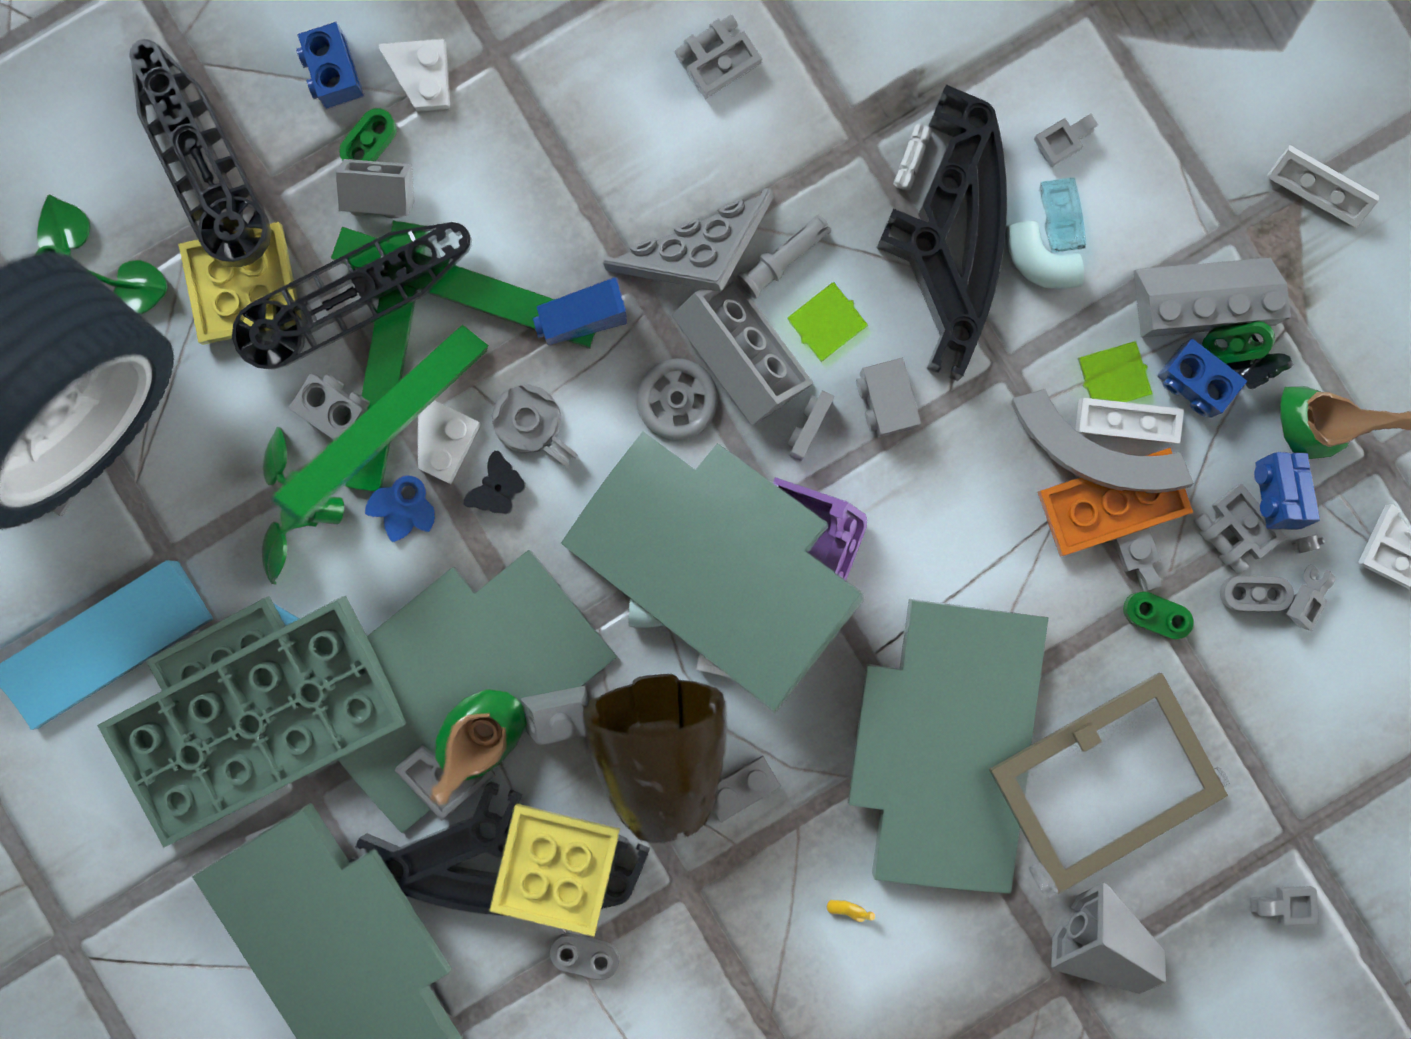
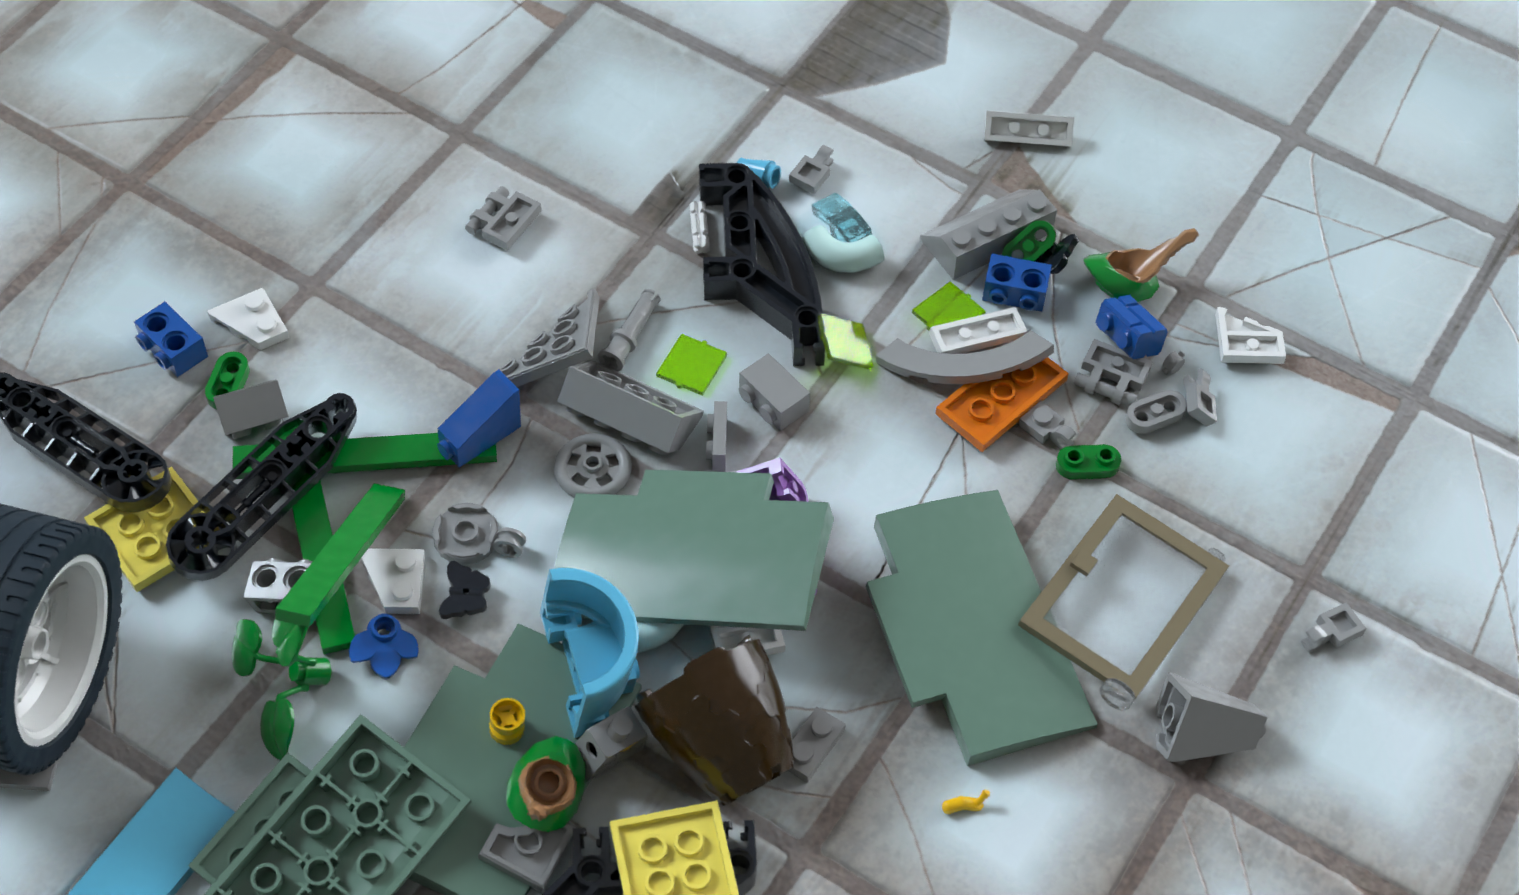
camera: 30 degrees left, 30 degrees down
(468, 660) = (507, 713): none -> yellow wheel
(580, 635) = (598, 653): none -> medium azure piece
(989, 372) = (845, 341): none -> clear neon green piece
(1011, 118) = (765, 170): none -> medium azure cone

